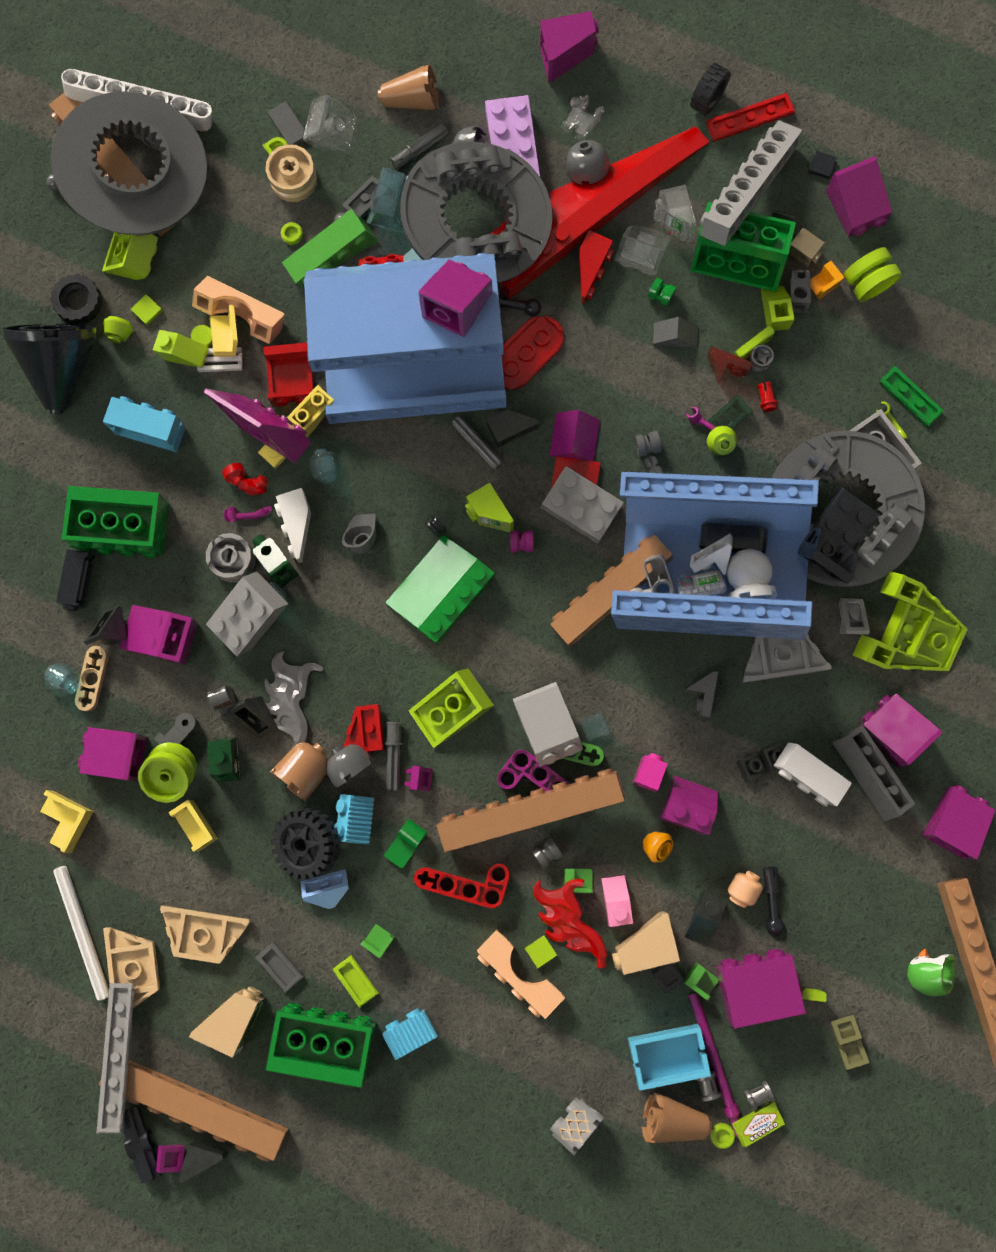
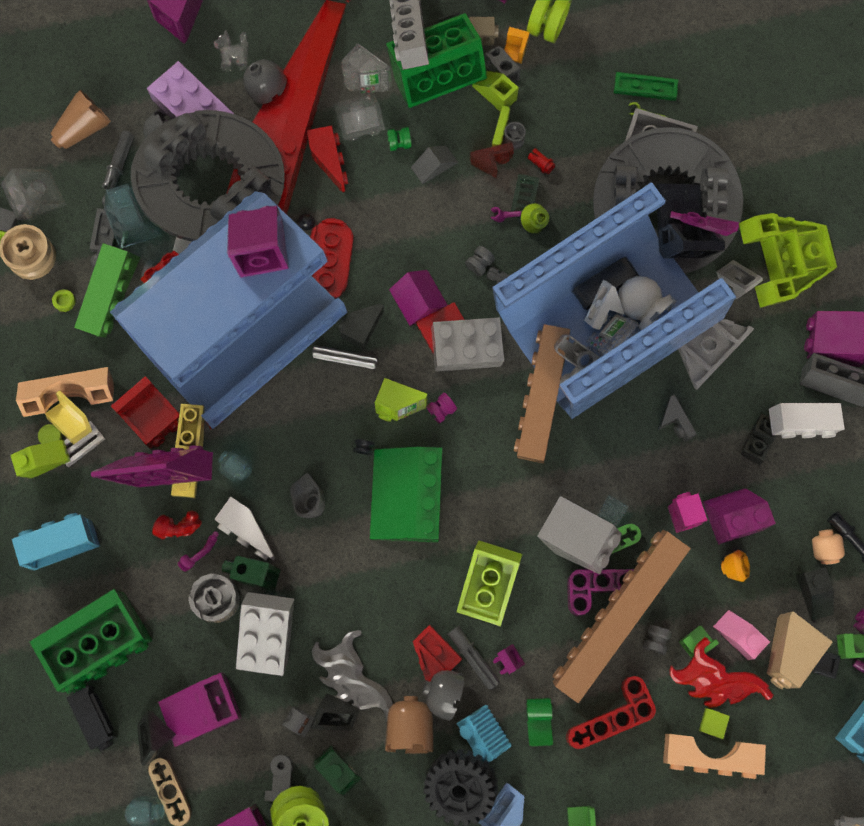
camera: 45 degrees left, 5 degrees down
(860, 556) = (709, 223): none -> magenta piece

